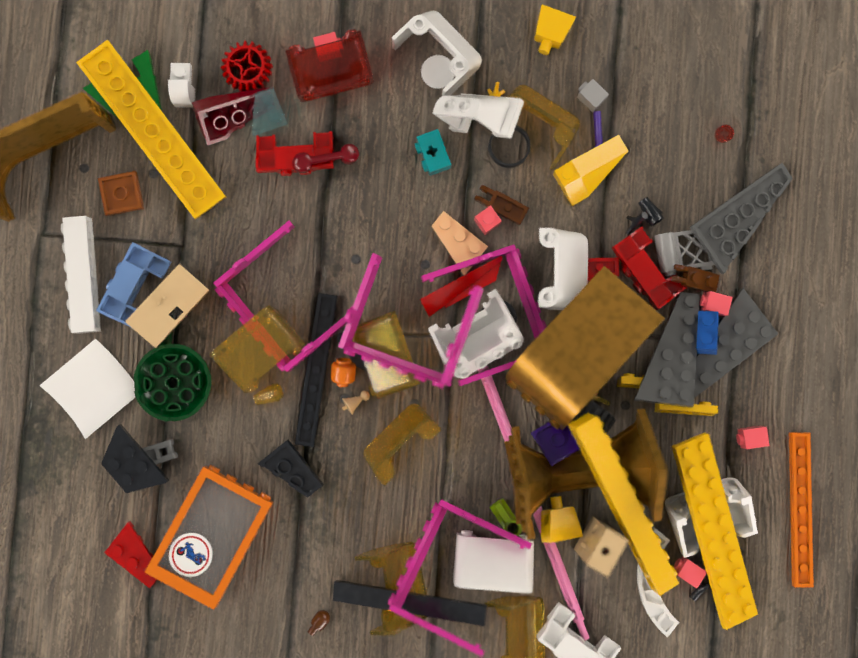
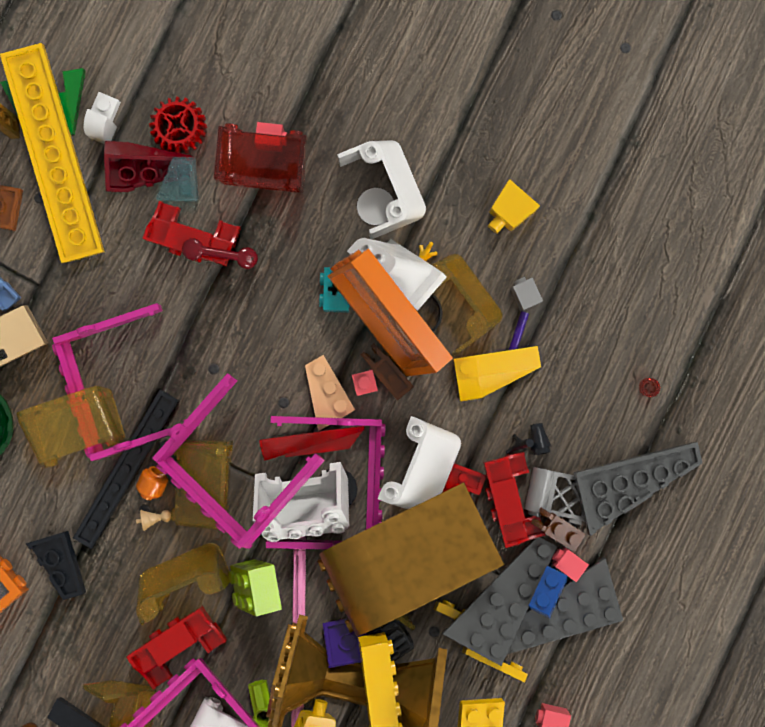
camera: 20 degrees right, 0 degrees up
(270, 394) = (66, 476): clear yellow cone -> none
(412, 495) = (164, 645): none -> red bracket
(465, 420) = (255, 587): none -> lime brick
(488, 150) = (388, 314): none -> orange window

